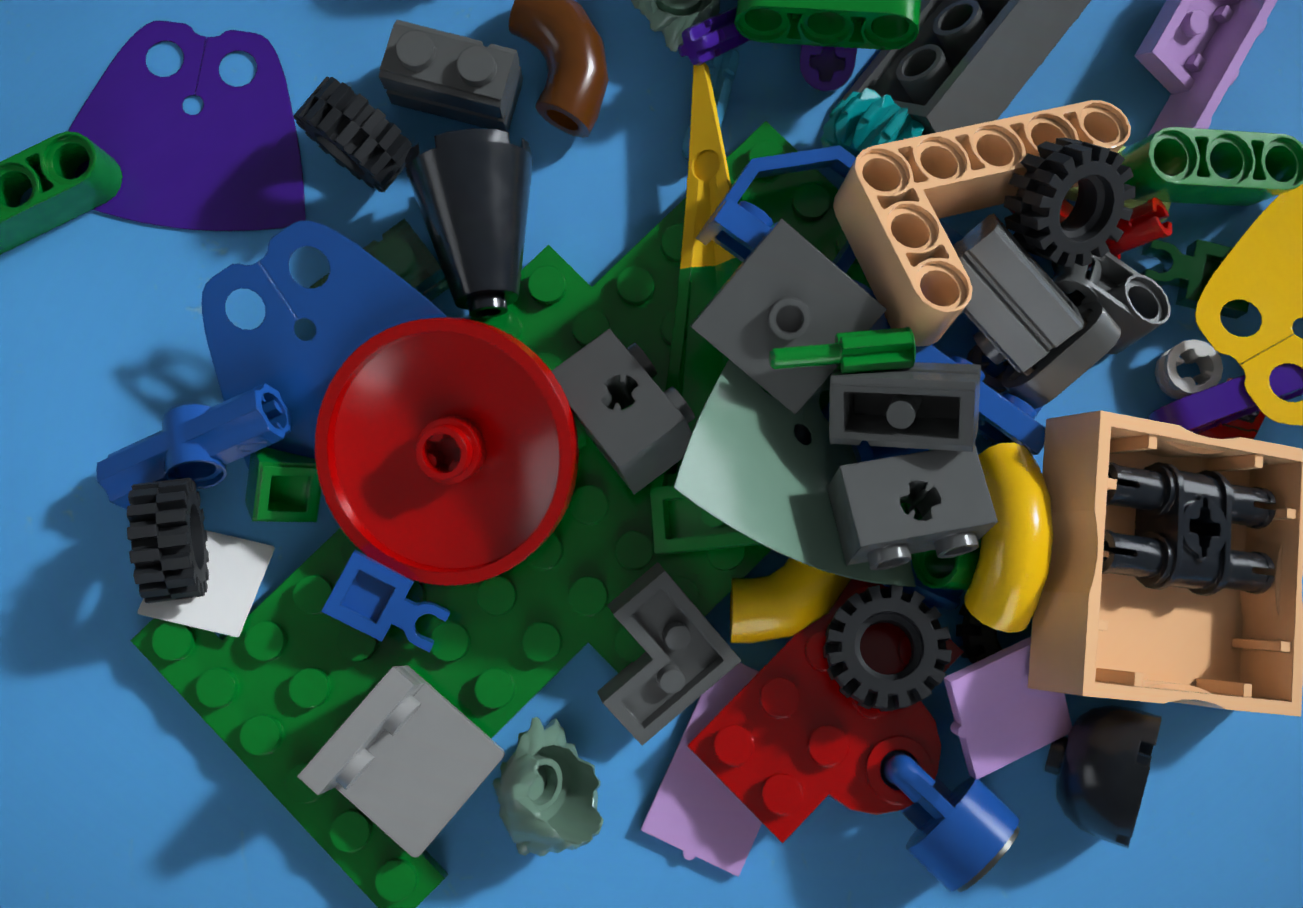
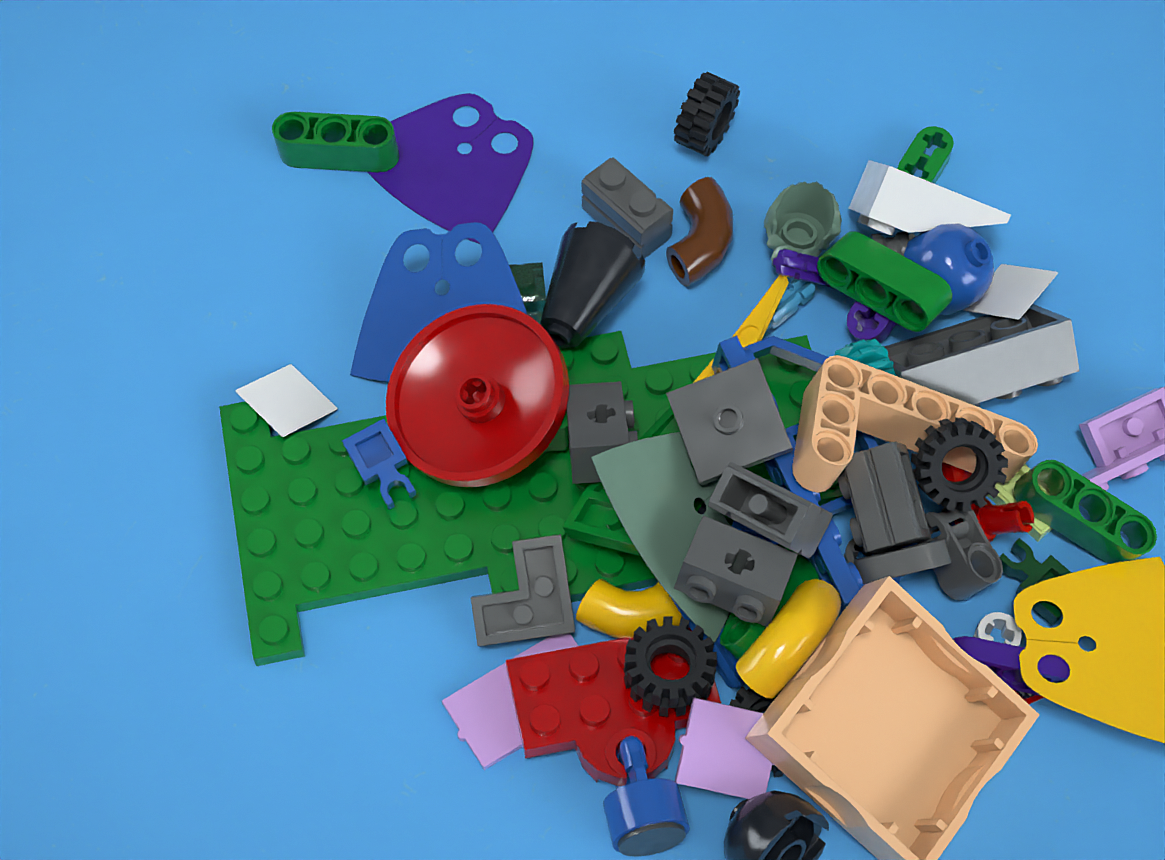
camera: 35 degrees right, 20 degrees down
(168, 540) = (283, 355): black tyre -> none
(198, 443) = (334, 318): blue piece -> none
(282, 487) = (367, 374): green slope -> none
(354, 133) = (545, 204): black tyre -> none
(405, 759) = (329, 550): light grey bracket -> none
(548, 793) = (399, 631): sand green hair -> none
(853, 352) = (753, 457): green axle -> none
(1186, 530) = (893, 711): black pin -> none

